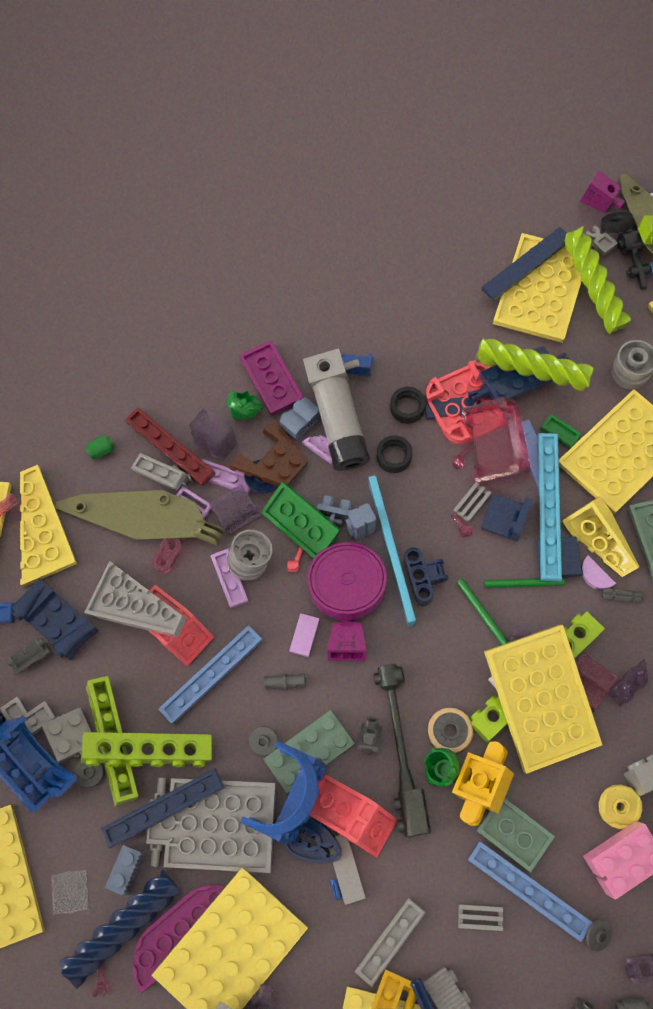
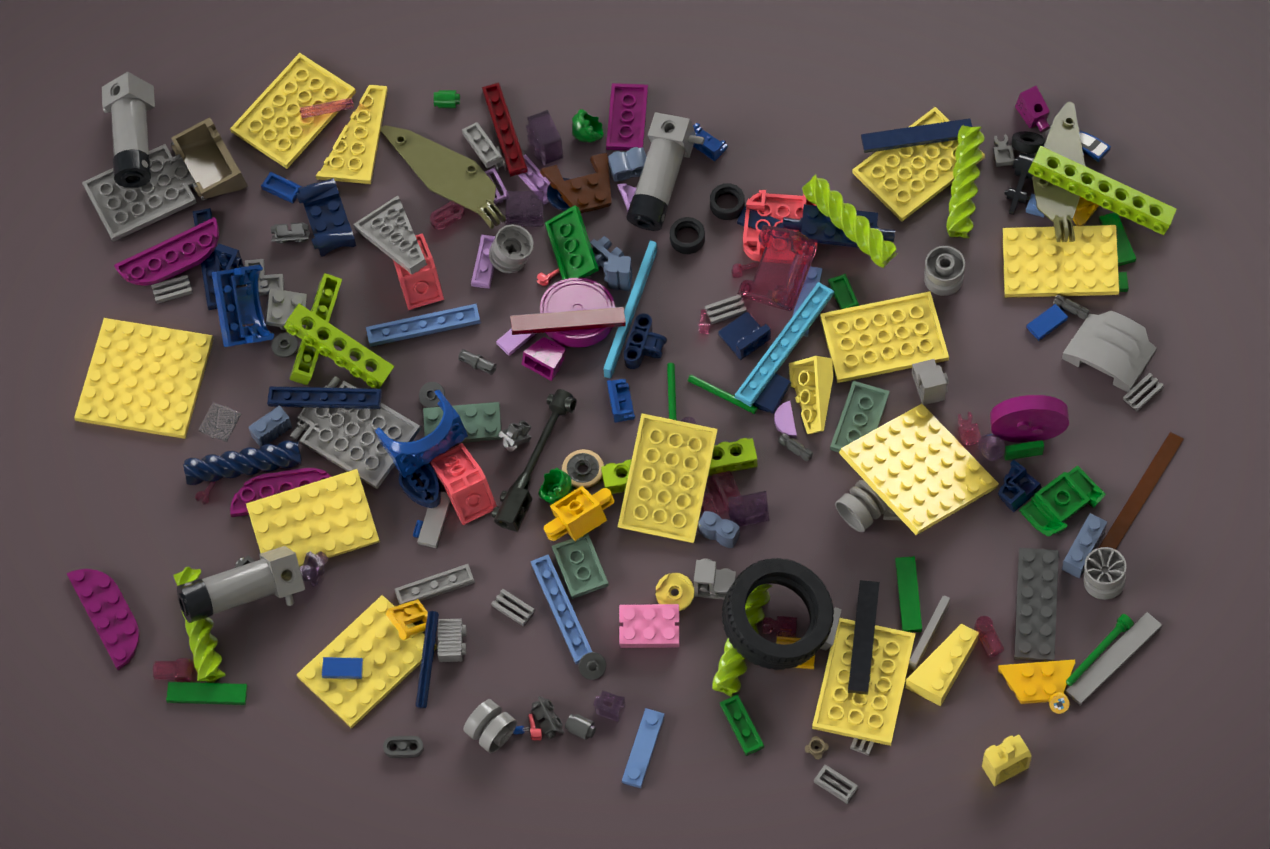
camera: 30 degrees right, 5 degrees down
(348, 596) = (567, 320): none -> tile
(439, 643) = (620, 400): none -> blue hinge
(612, 717) = (722, 530): none -> sand blue brick

